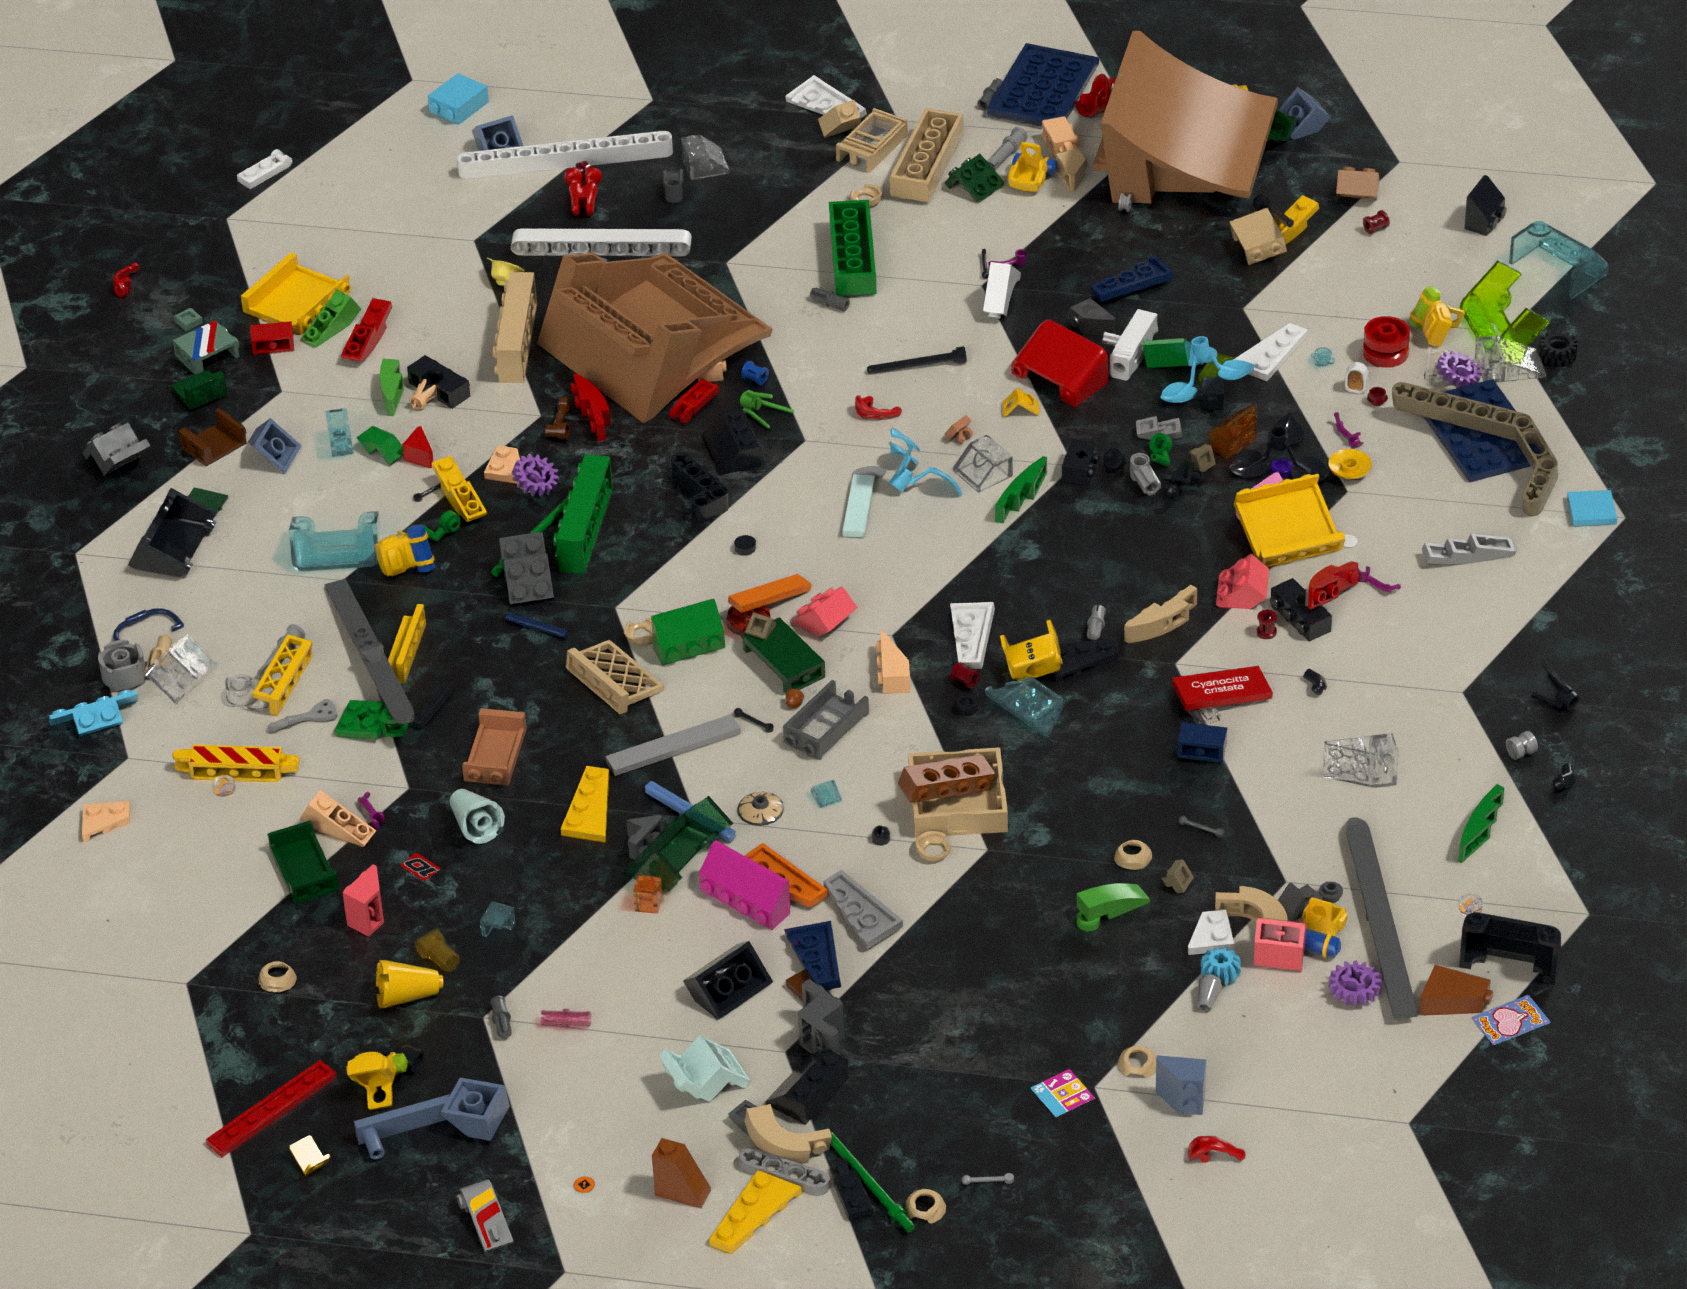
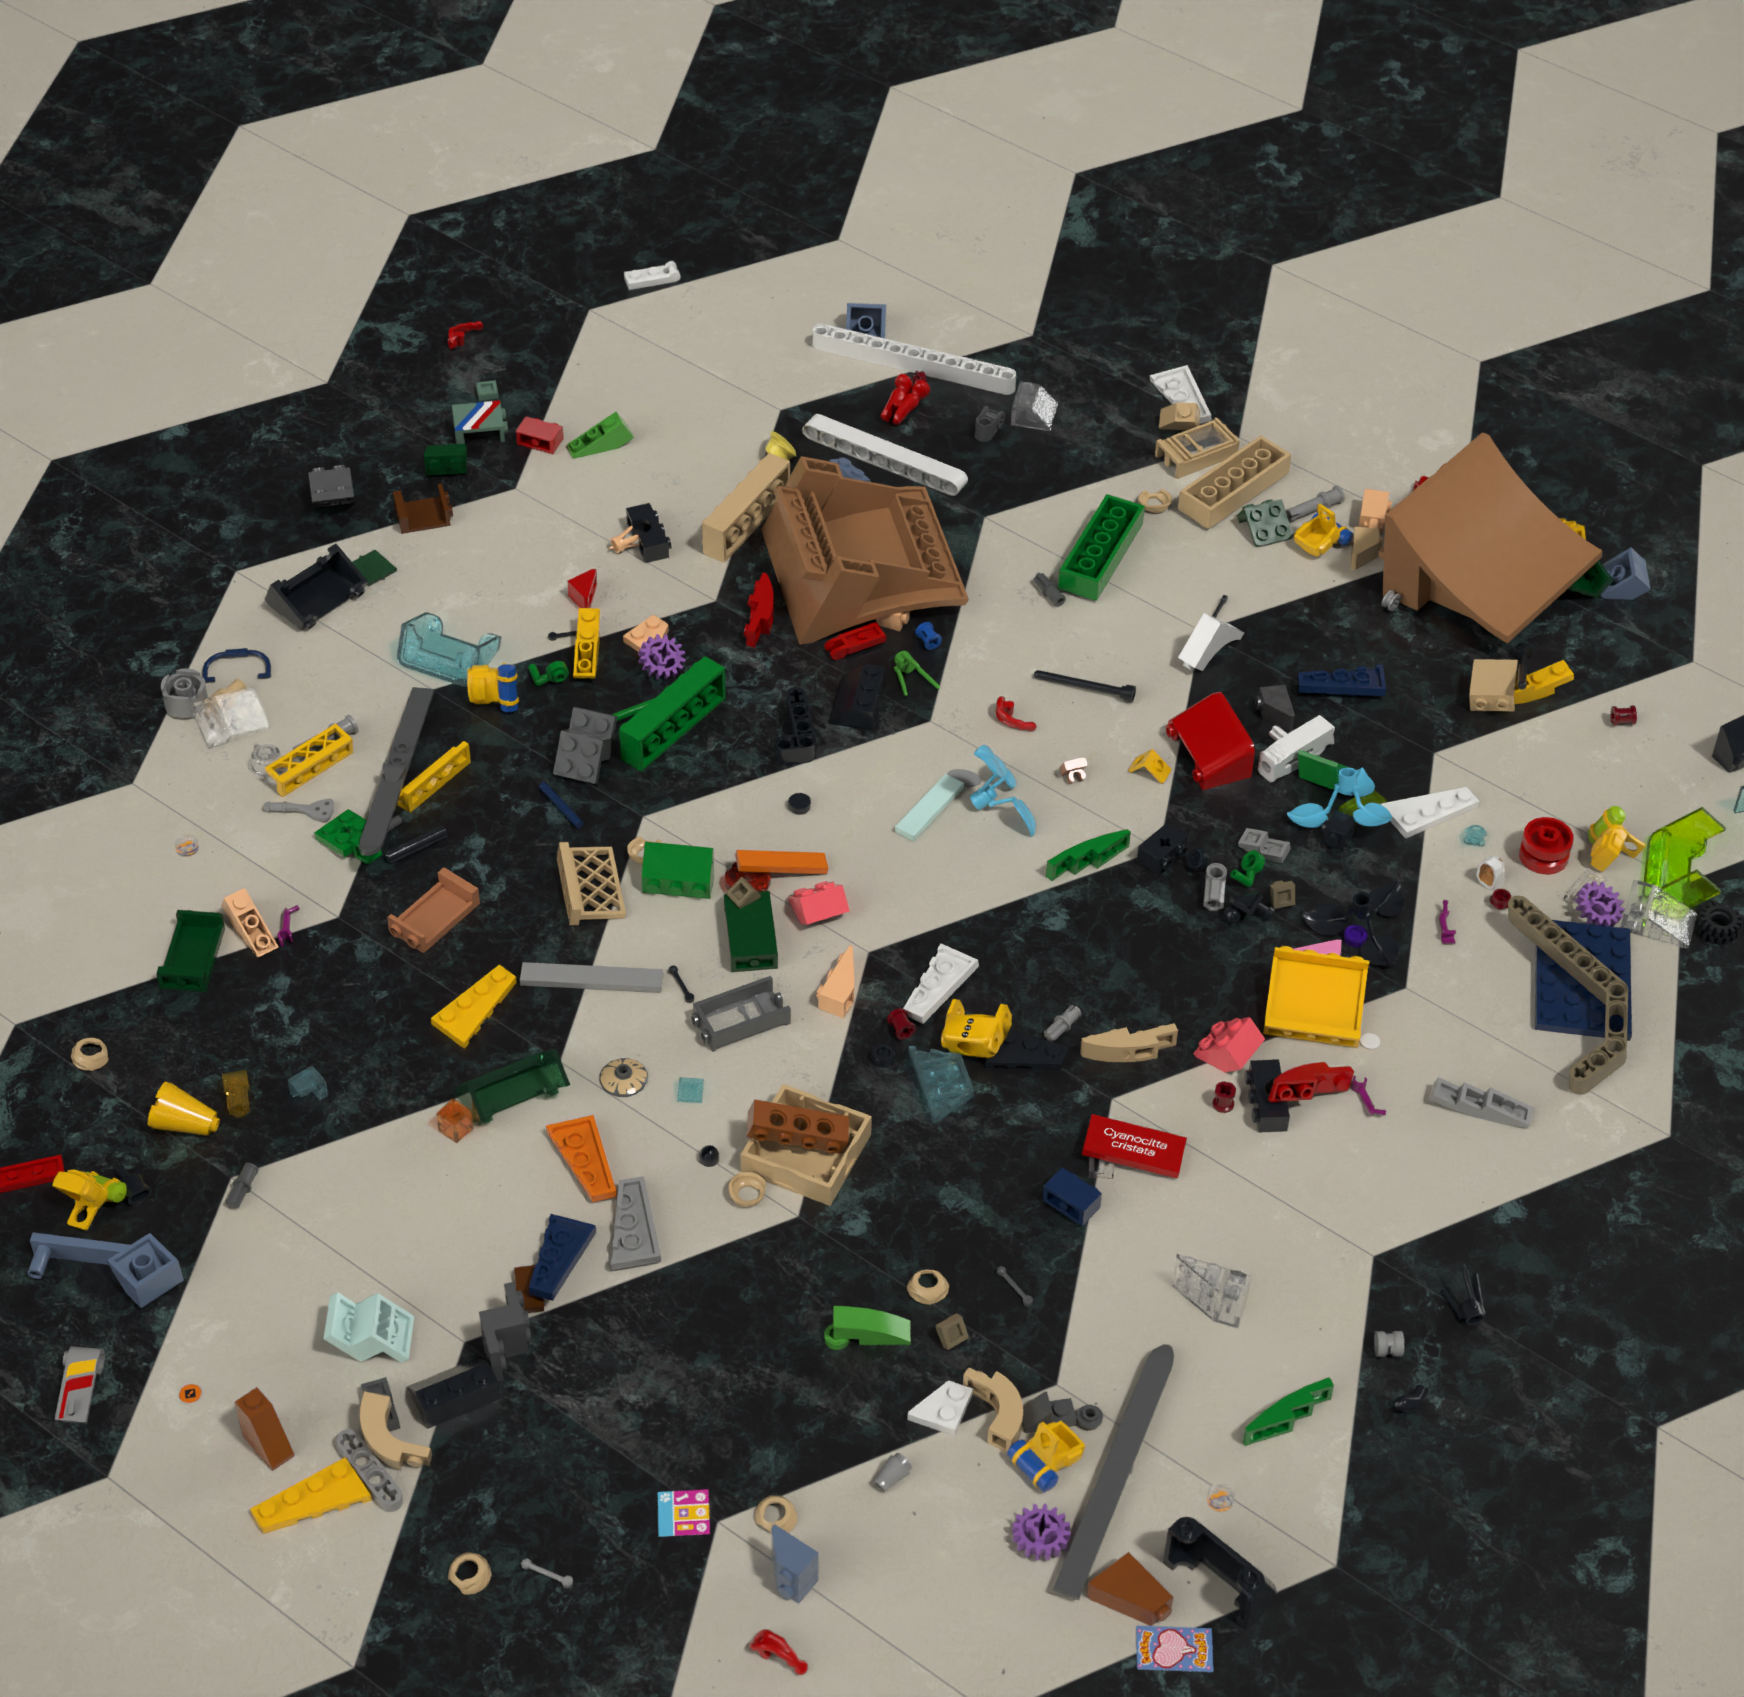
camera: 25 degrees right, 5 degrees up
(96, 715) = (133, 732): medium azure bracket -> none
(104, 817) = (67, 832): light nougat wing -> none
(239, 762) = (209, 828): yellow hinge -> none
(275, 444) = (464, 538): sand blue slope -> none
(291, 294) = (587, 399): yellow panel -> none
(339, 432) = (525, 547): clear light blue piece -> none
(364, 902) = (208, 1015): coral slope -> none
(369, 332) = (621, 464): red slope -> none
(383, 441) = (556, 572): green slope -> none
(391, 384) = (605, 519): bright green slope -> none
(420, 866) = (289, 1000): sticker -> none
(458, 98) = (859, 271): medium azure brick -> none
(476, 815) = (363, 972): light aqua cone -> none
(560, 429) = (719, 621): reddish brown brick -> none
(566, 1018) = (295, 1213): clear pink pin -> none
(642, 833) = (499, 1054): dark grey slope -> none
(680, 805) = (553, 1042): medium blue axle -> none
(728, 980) = (462, 1244): black slope -> none
(745, 885) = (540, 1154): dark pink slope -> none
(794, 698) = (730, 979): dark orange hinge -> none
(851, 1191) = (413, 1522): black hinge -> none
(895, 1210) = (437, 1564): green bar -> none
(984, 464) = (1071, 814): clear slope -> none
(989, 93) = (1340, 443): dark grey pin -> none
(1020, 258) = (1255, 614): magenta piece -> none
(1042, 84) = (1394, 453): dark blue plate -> none
(1222, 964) = (923, 1449): medium azure gear -> none
(1234, 432) = (1330, 880): clear orange slope -> none
(1279, 943) = (992, 1451): coral slope -> none
(1318, 681) = (1234, 1181): black arm -> none
(1350, 463) = (1423, 960): yellow dish -> none
(1357, 183) = (1630, 670): medium nougat slope -> none
(1592, 508) = (1640, 1111): medium azure tile -> none

